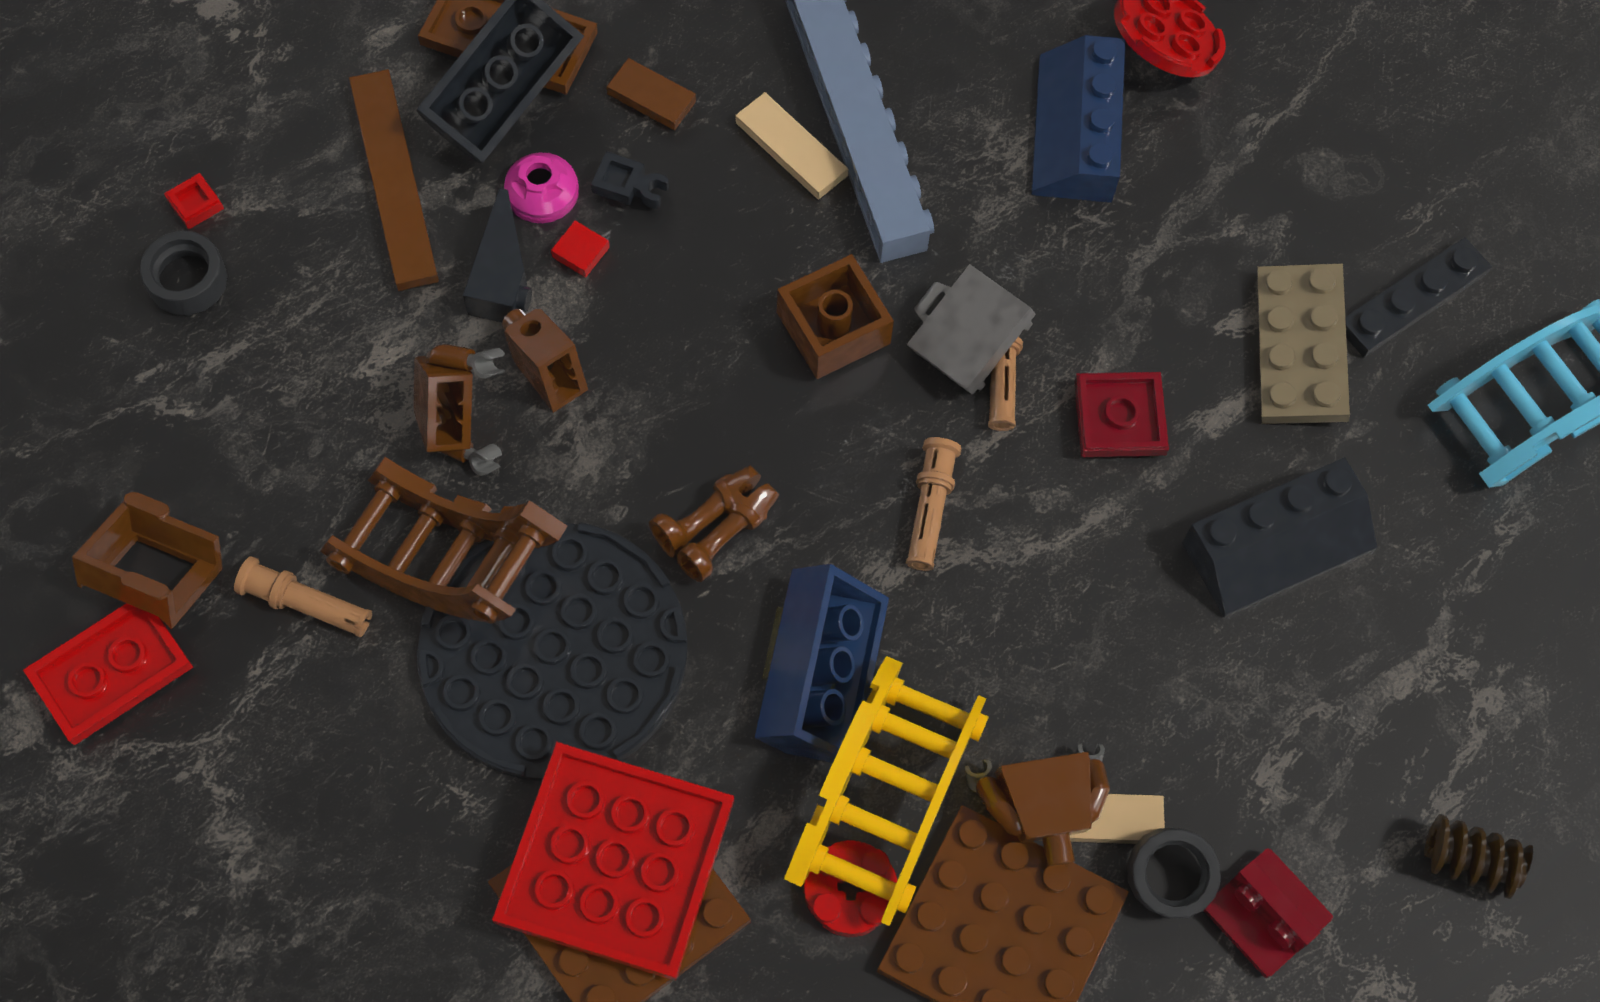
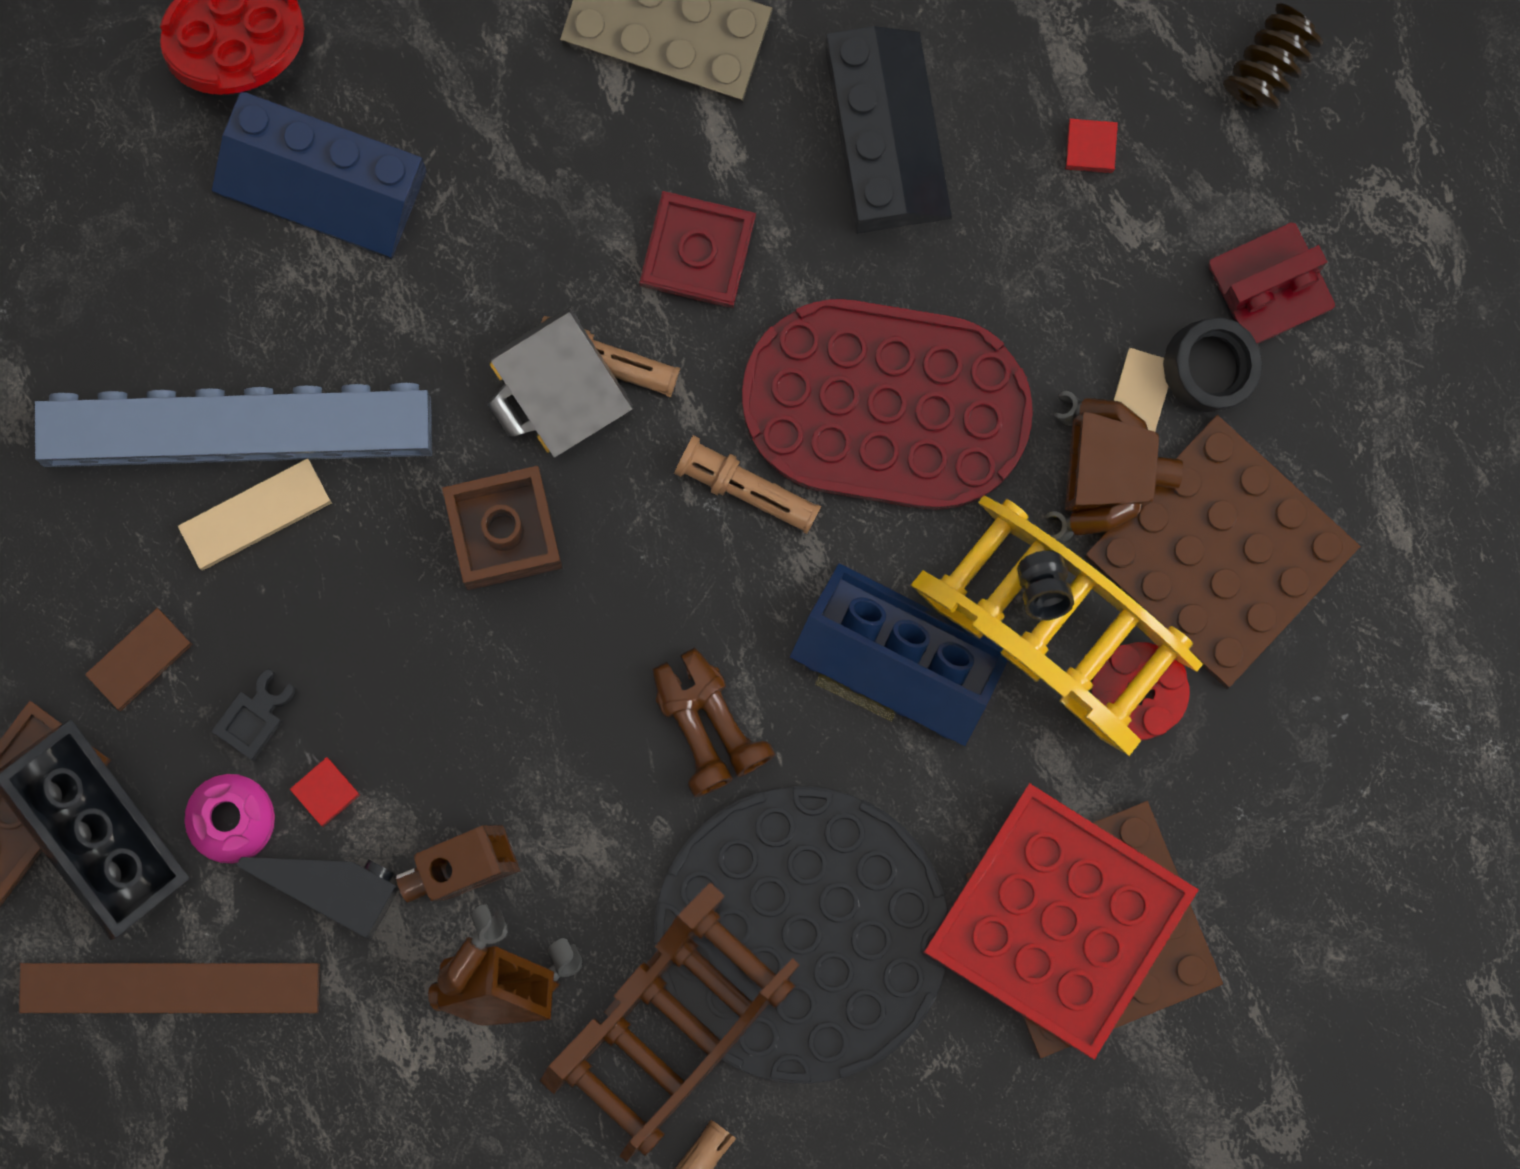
camera: 75 degrees left, 15 degrees up
(916, 751) = (1045, 585): none -> black wheel
(1041, 602) = (887, 404): none -> dark red plate
(1334, 718) = (1091, 145): none -> red tile

